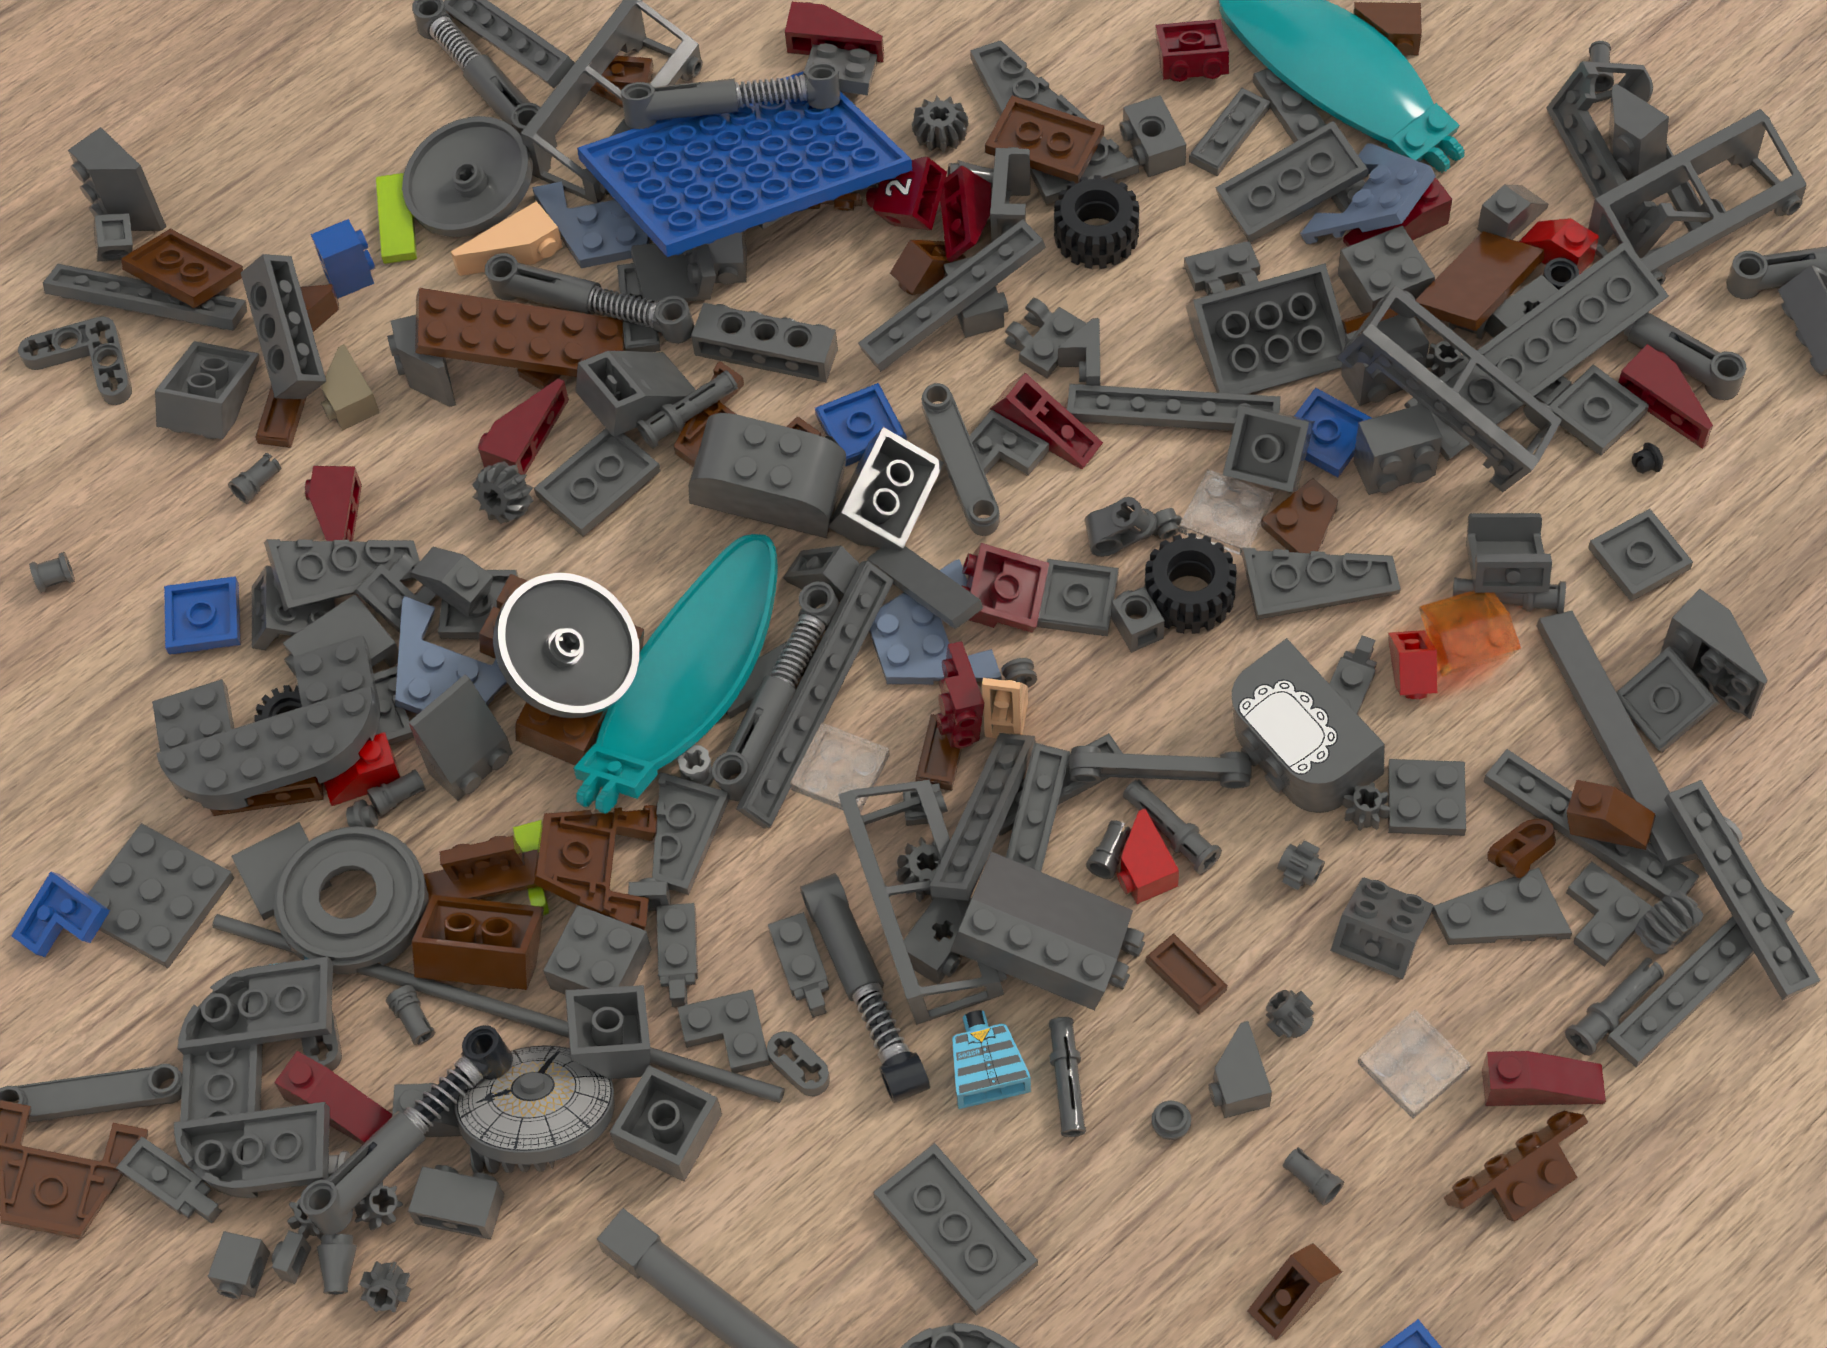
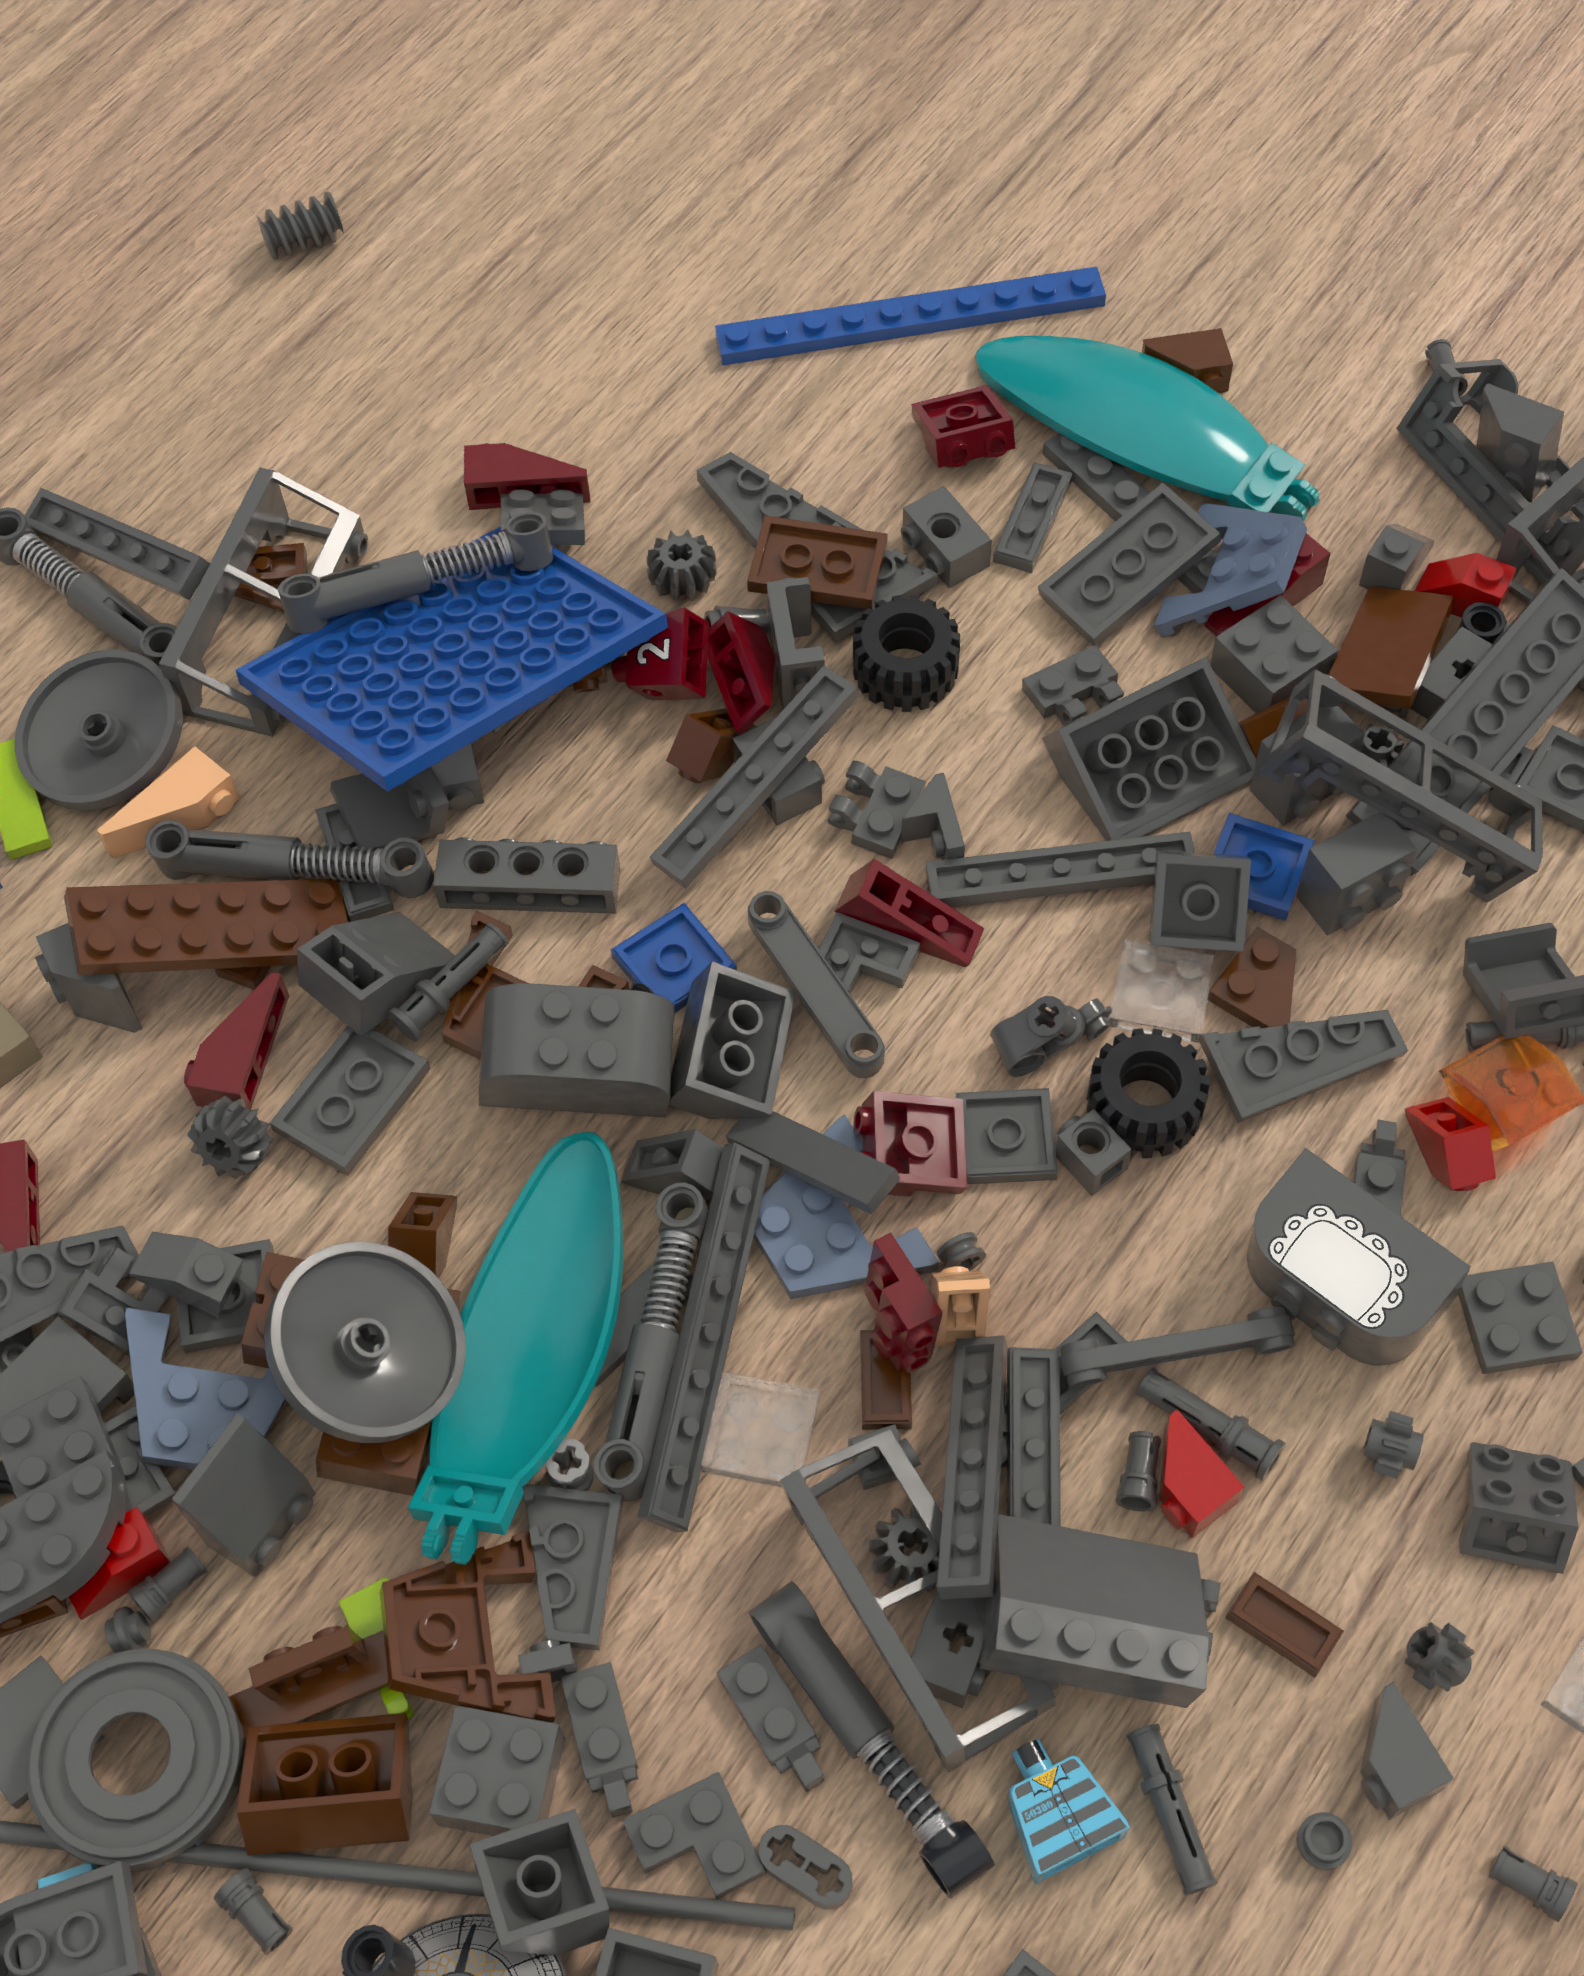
camera: 15 degrees left, 0 degrees up
(591, 232) = (274, 772): sand blue wing -> none
(630, 583) = (424, 1228): none -> reddish brown slope
(1366, 806) = (1457, 1357): dark grey gear -> none

